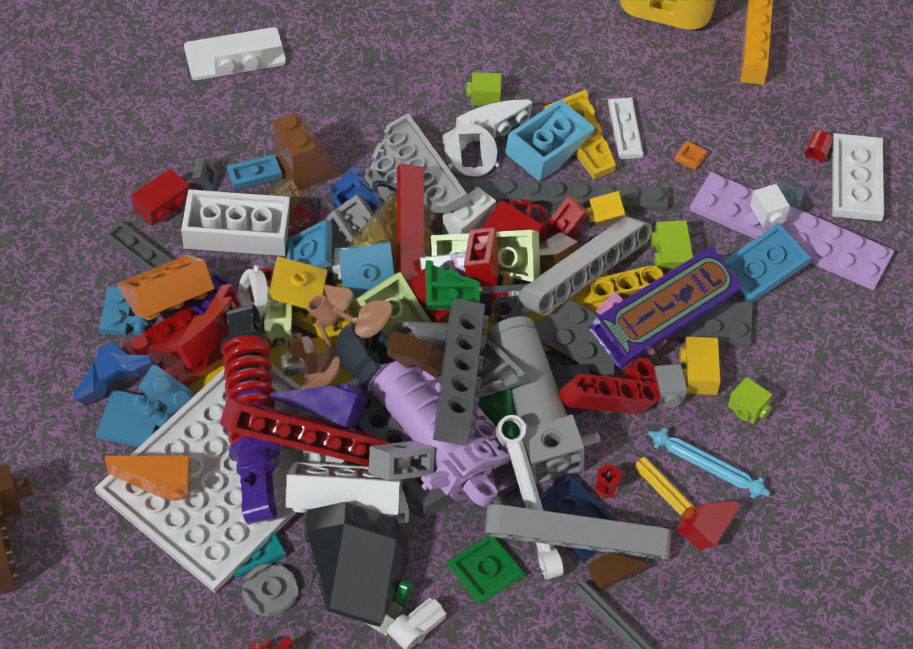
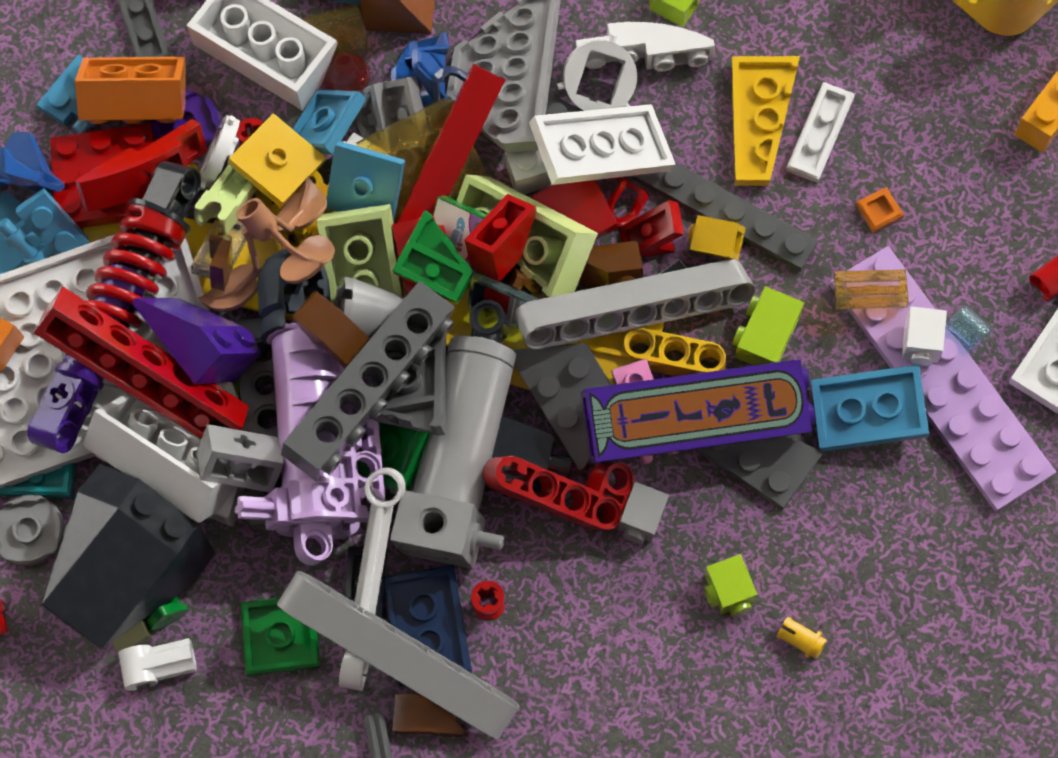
camera: 35 degrees right, 15 degrees up
(505, 181) = (601, 144): none -> white plate
(548, 139) = (707, 105): medium azure slope -> none
(662, 485) = (555, 645): yellow axle -> none
(701, 365) = (700, 506): yellow brick -> none
(706, 523) = (571, 718): red slope -> none
(709, 463) = (629, 640): medium azure wheel -> none
(722, 200) = (870, 302): none -> clear yellow tile
(812, 411) = (804, 639): none -> yellow pin

